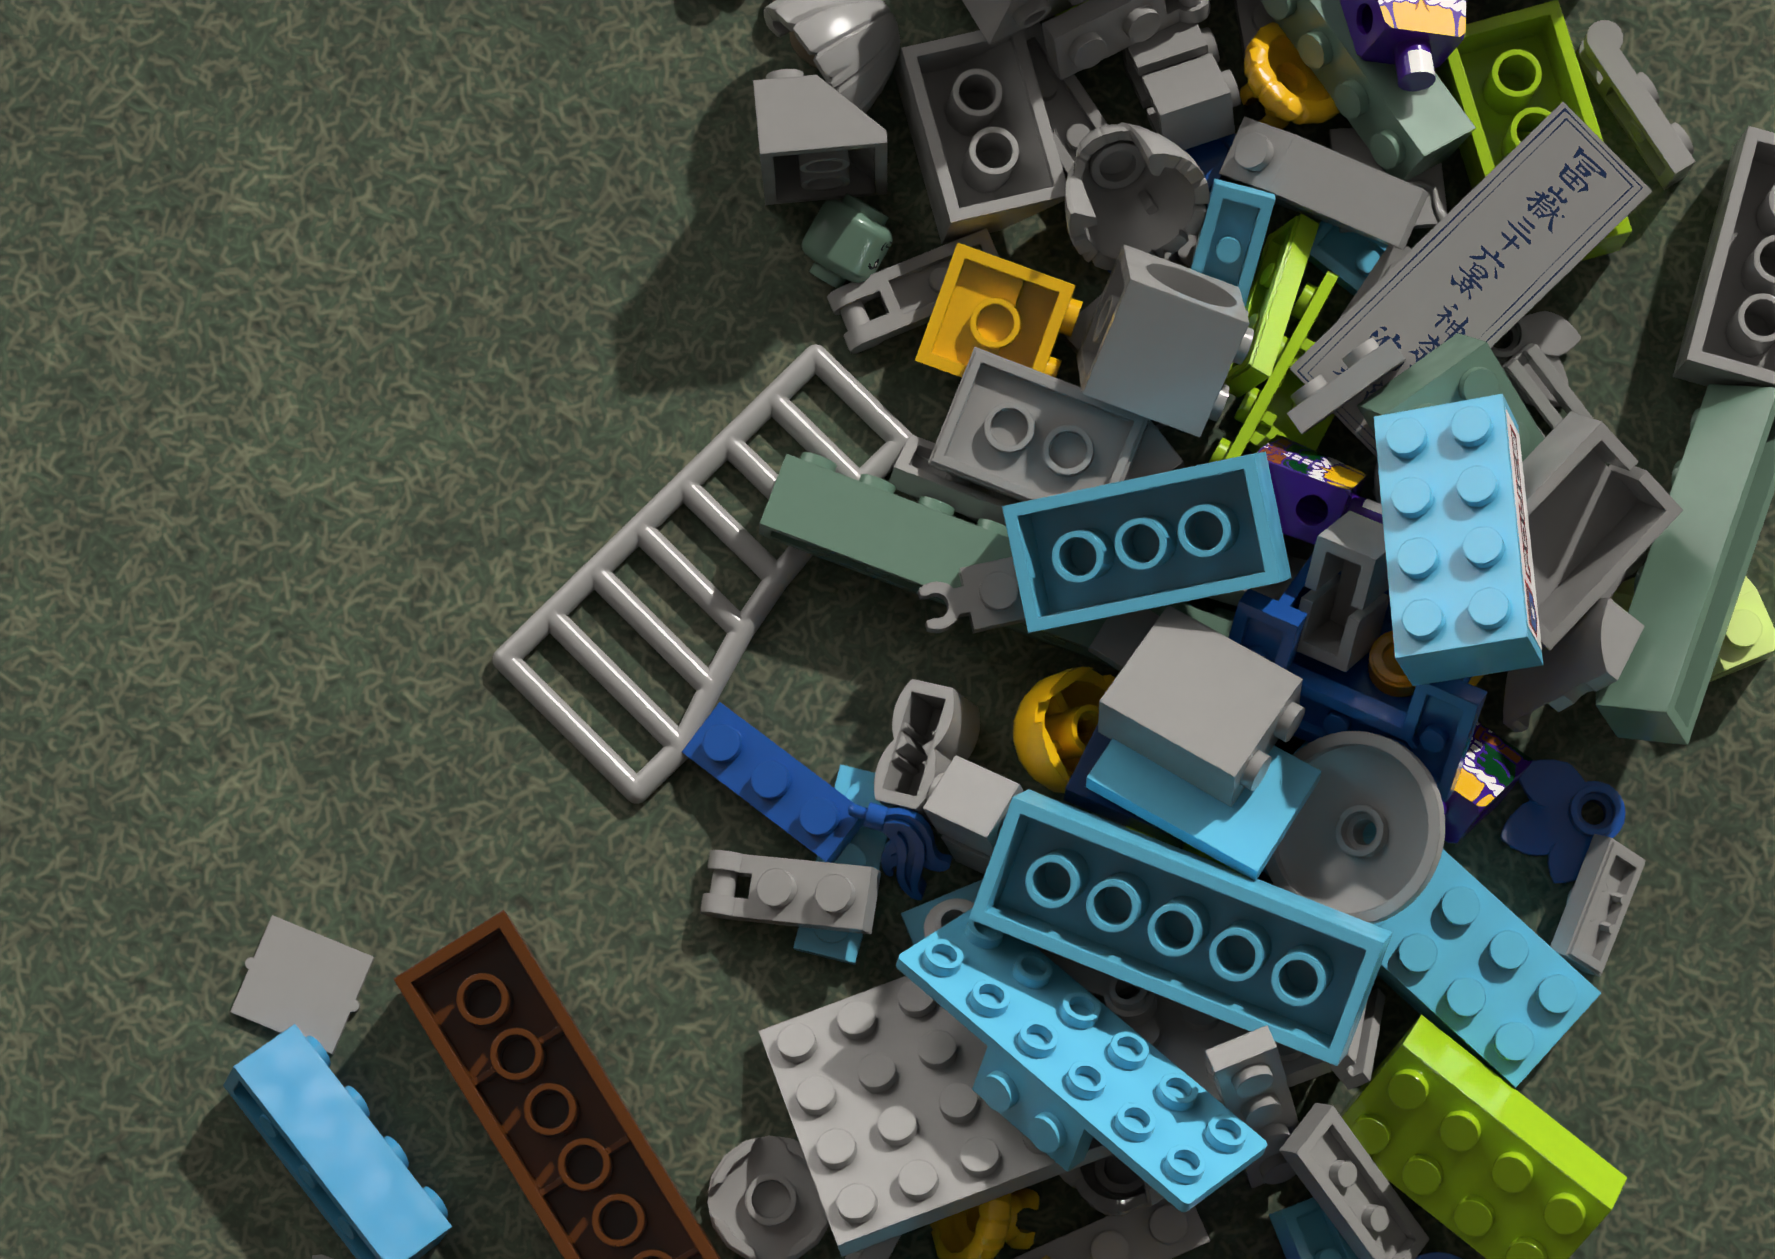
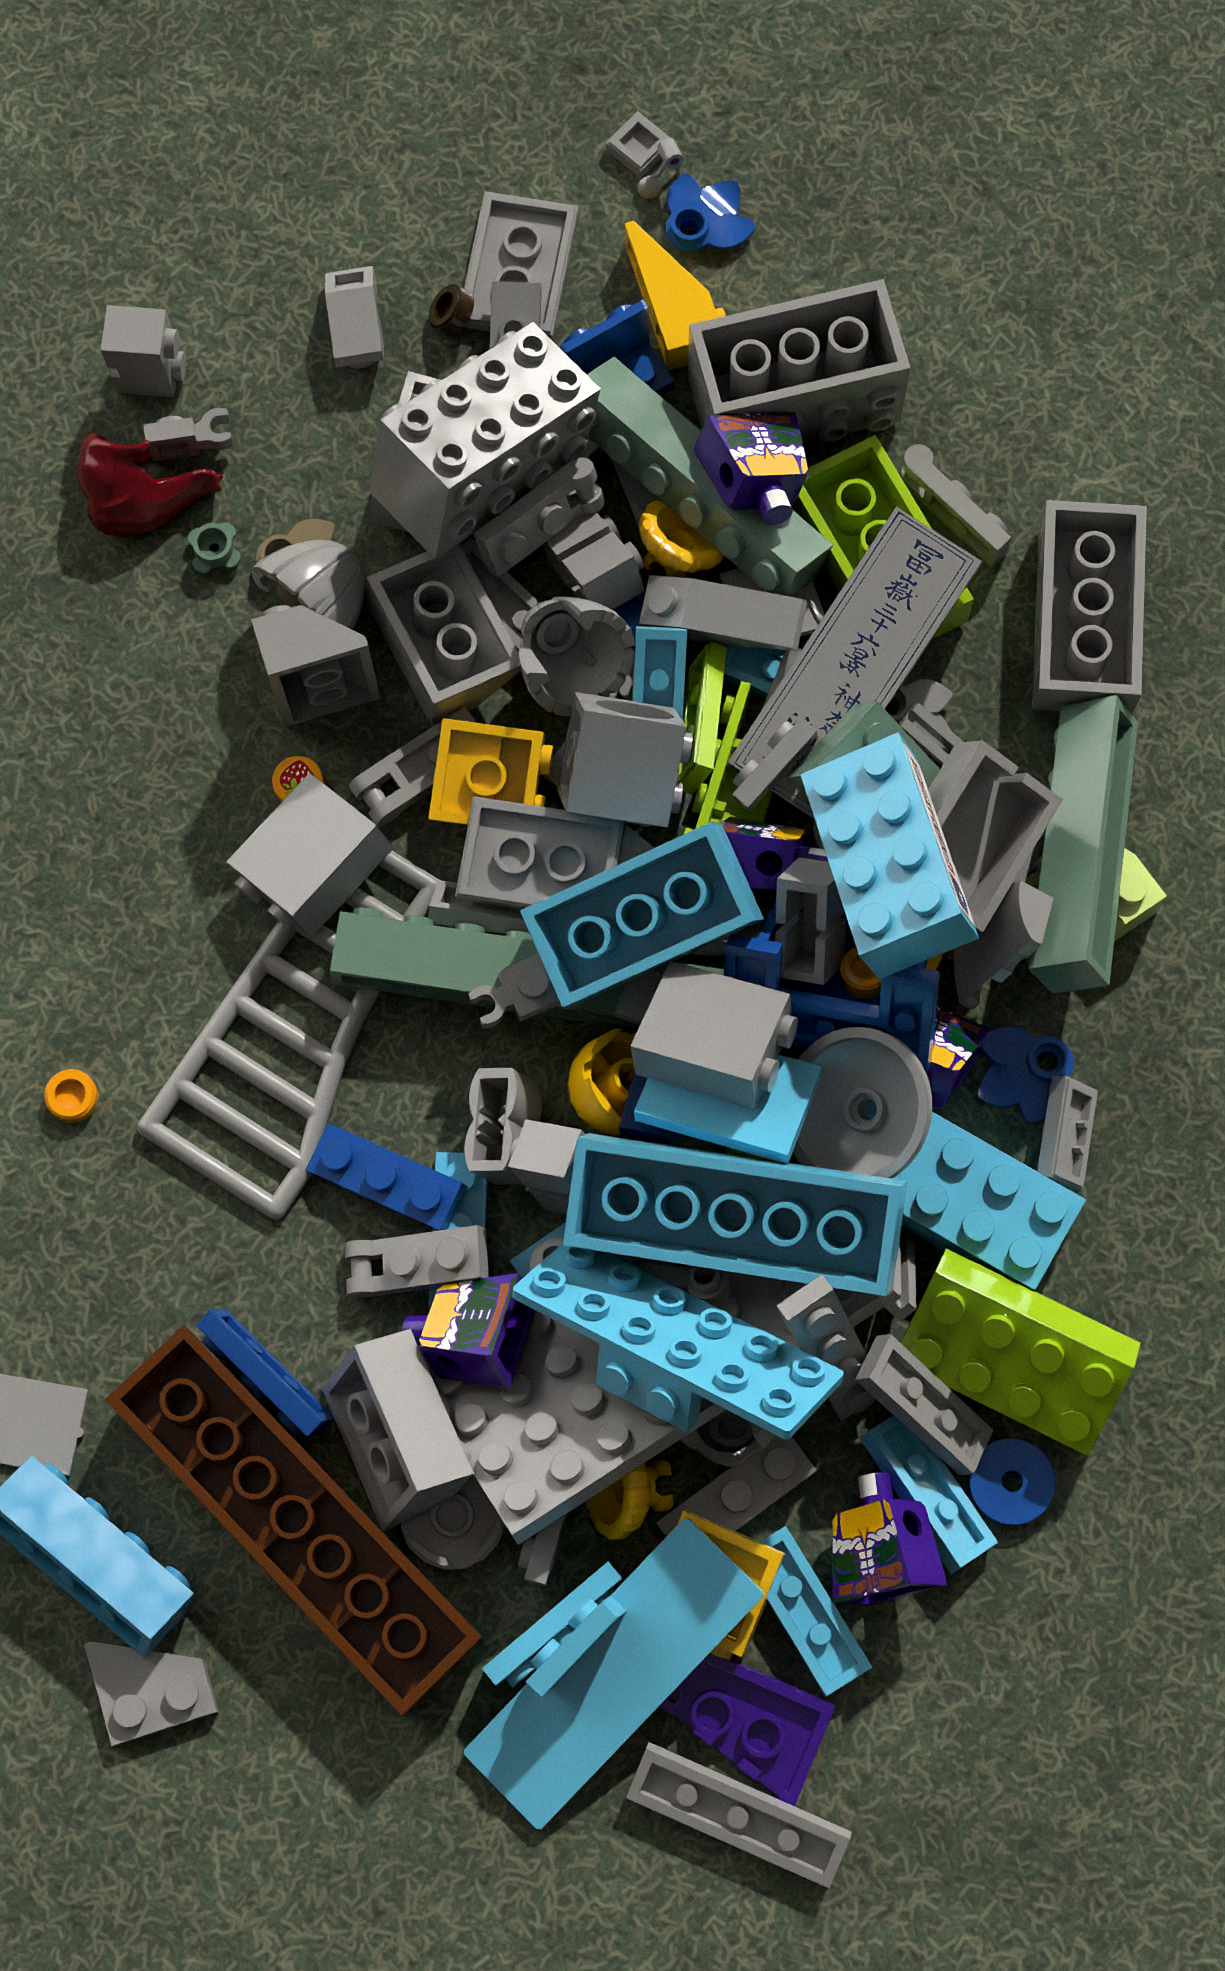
camera: 10 degrees left, 5 degrees down
(422, 602) = (71, 1096): none -> light orange tile
(584, 984) = (264, 1373): none -> blue plate
(727, 1085) = (397, 1428): none -> light grey slope
(762, 375) = (308, 856): none -> light grey brick
(767, 278) = (291, 773): none -> tile
(840, 991) = (474, 1331): none -> torso
(846, 241) = (355, 739): sand green head -> none
(909, 845) = (504, 1205): blue piece -> none

